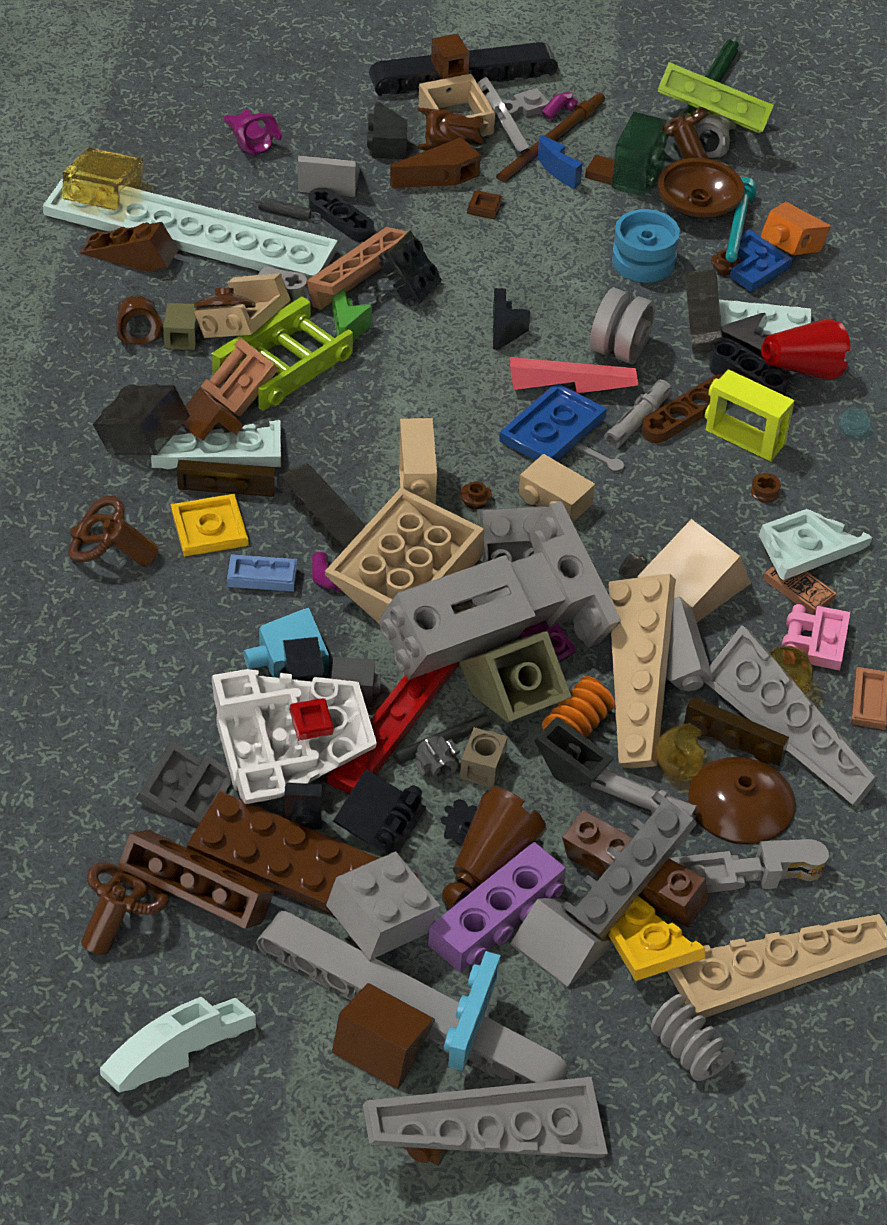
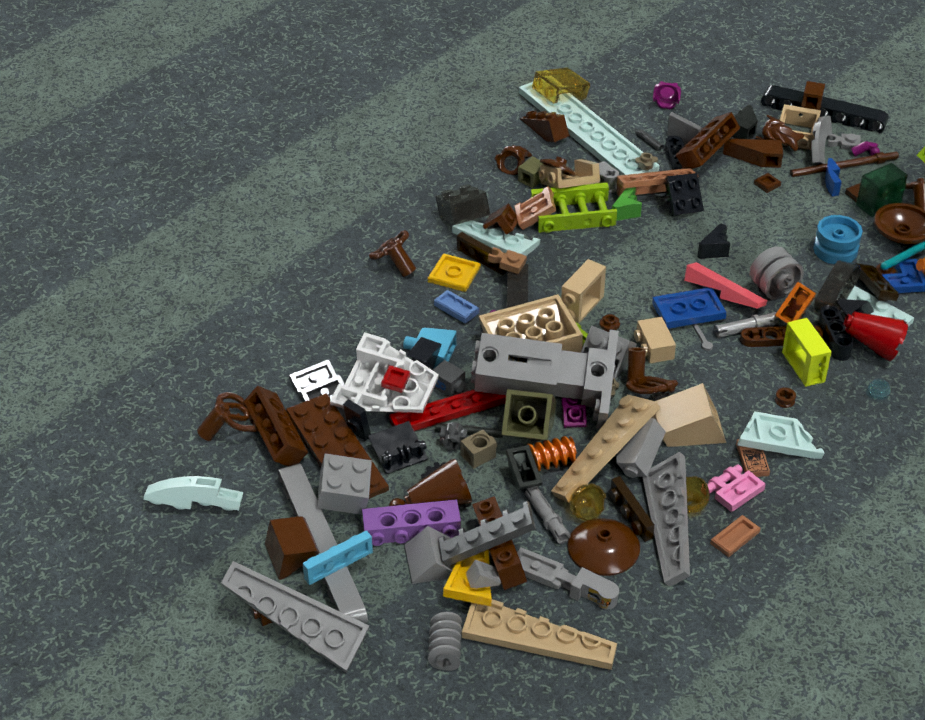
camera: 40 degrees right, 5 degrees down
(287, 470) = (508, 261): none -> medium nougat plate
(320, 241) = (646, 161): none -> dark tan plate
(379, 179) = (708, 141): none -> reddish brown brick
(615, 563) = (636, 375): none -> reddish brown piece
(664, 924) = (482, 575): none -> light grey slope
(684, 356) = (796, 303): none -> orange torso
(741, 284) = (877, 283): none -> dark brown plate

